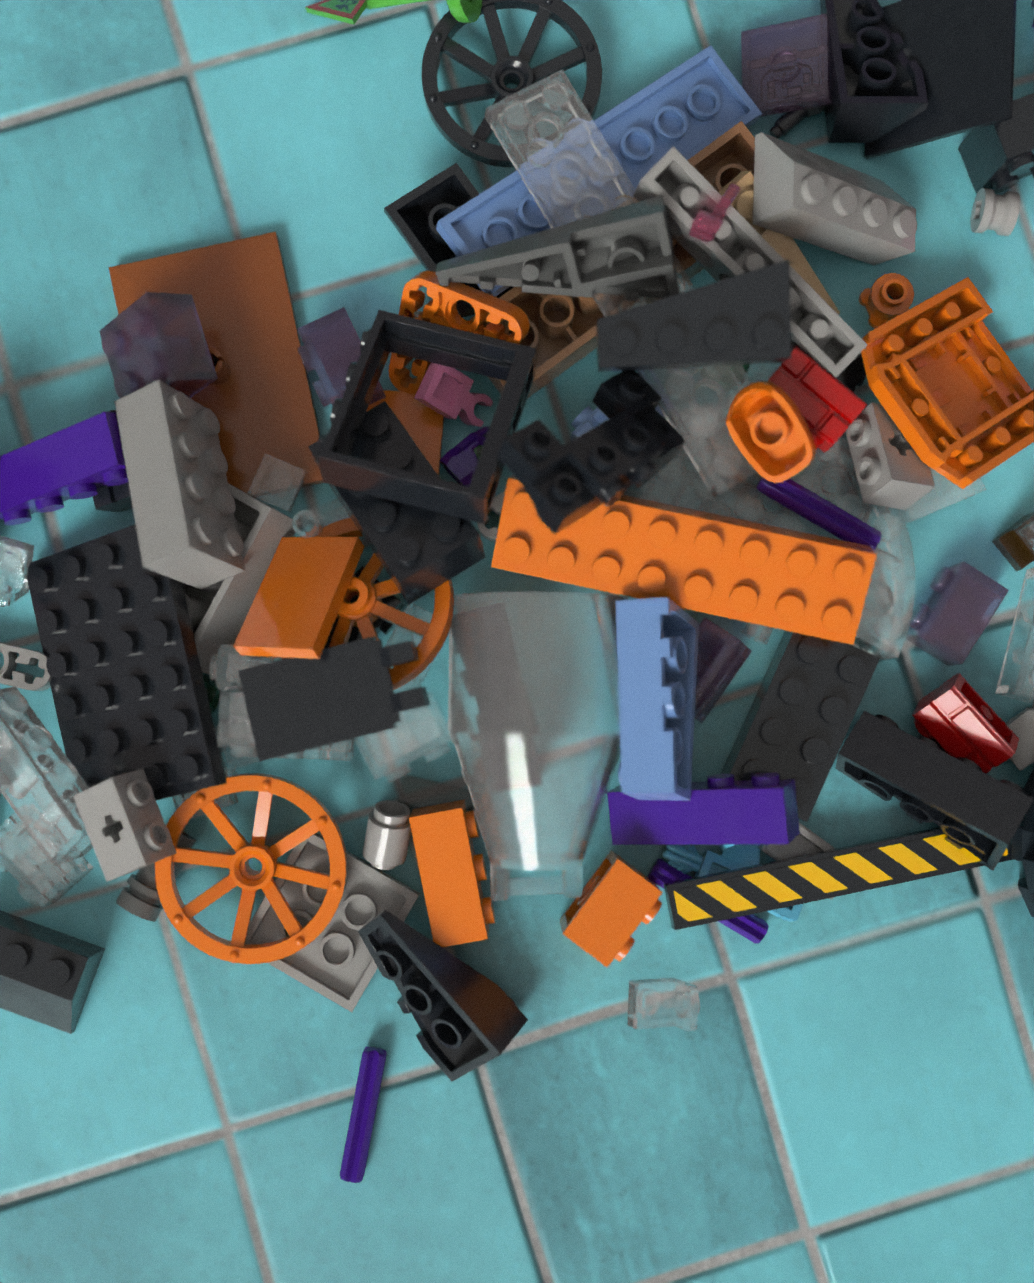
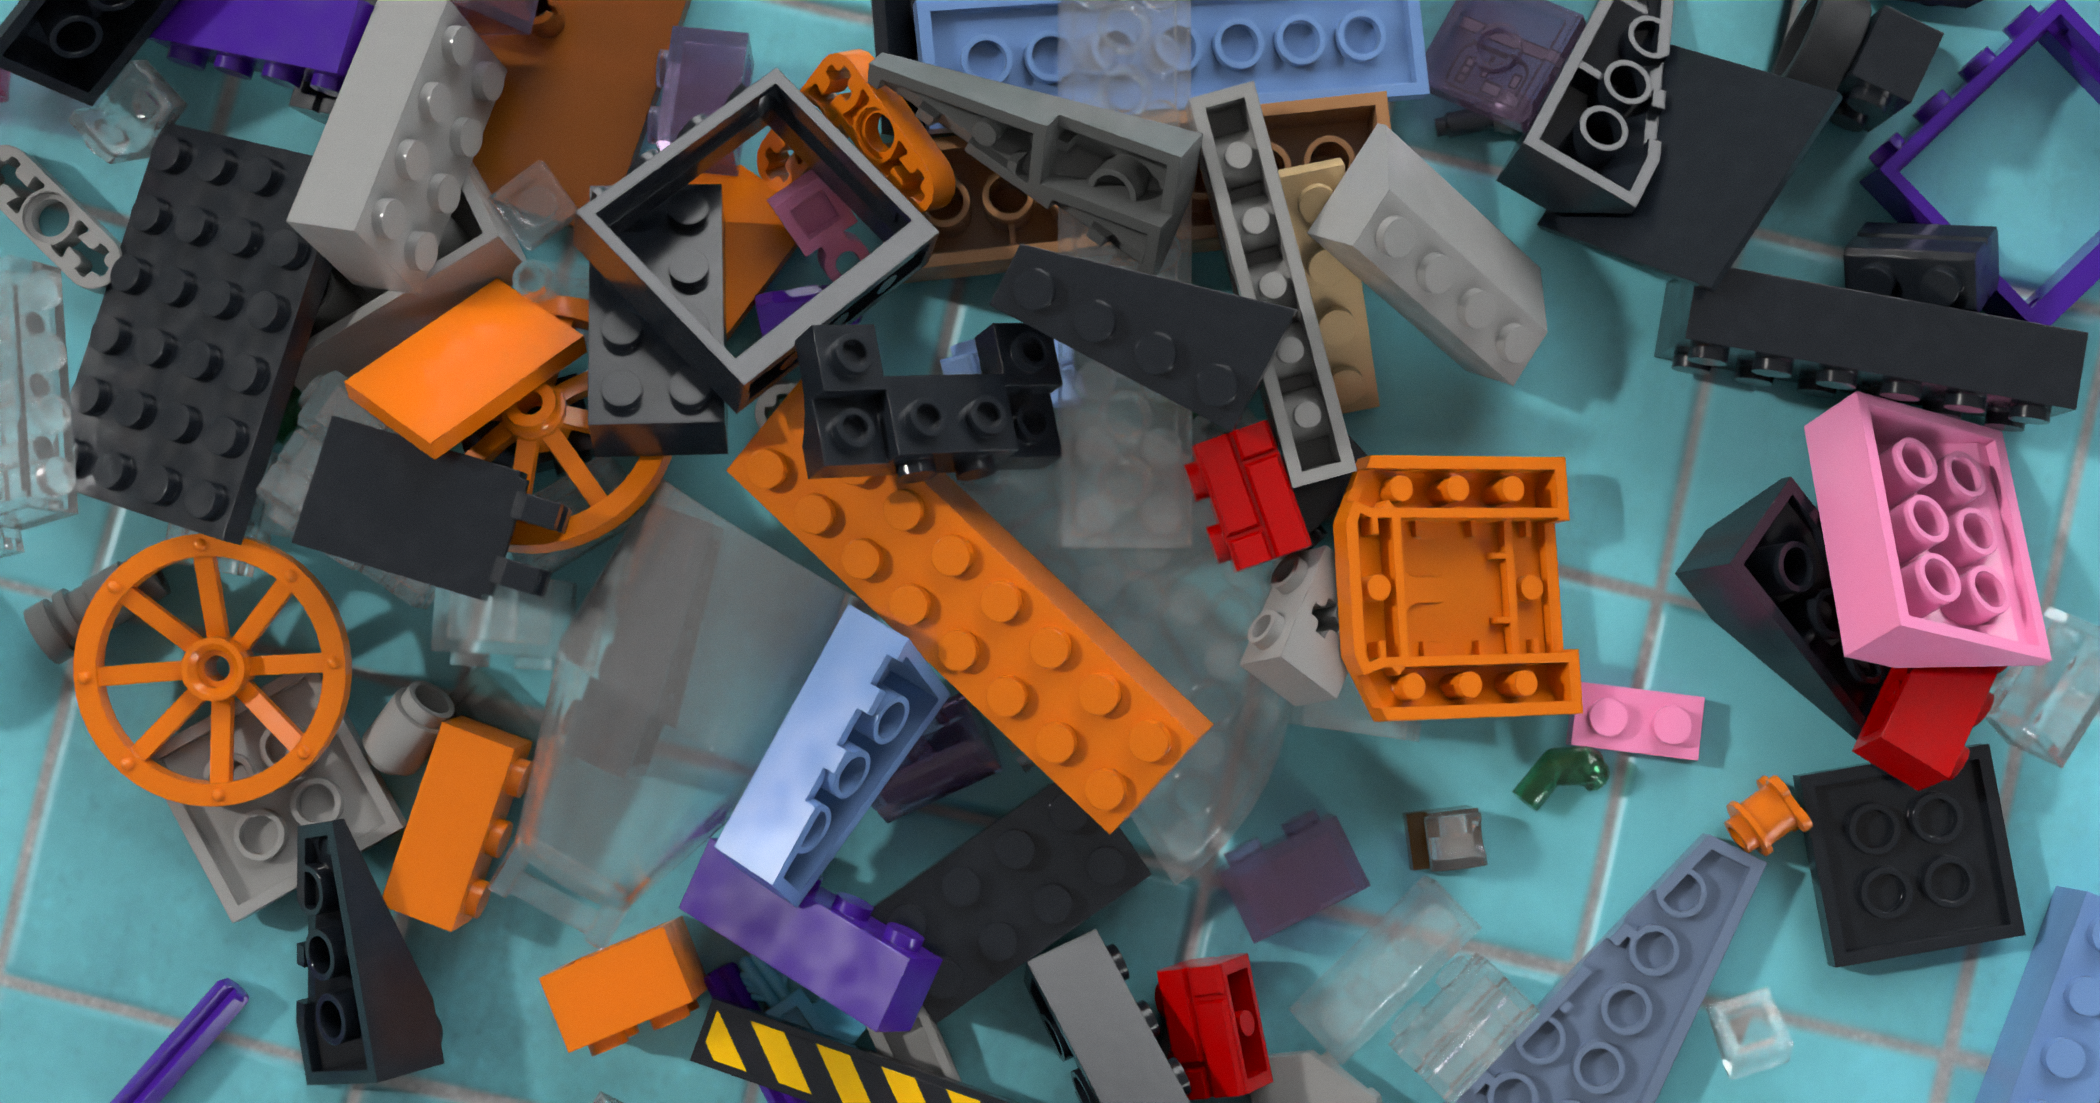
camera: 30 degrees right, 0 degrees up
(124, 824) = (85, 521): light grey brick -> none
(707, 224) = (1235, 204): clear pink hand -> none
(770, 431) = (1163, 507): orange piece -> none
(820, 512) = (1180, 641): dark purple axle -> none
(879, 305) = (1434, 434): orange brick -> none
(995, 212) = (1655, 394): light grey wheel -> none

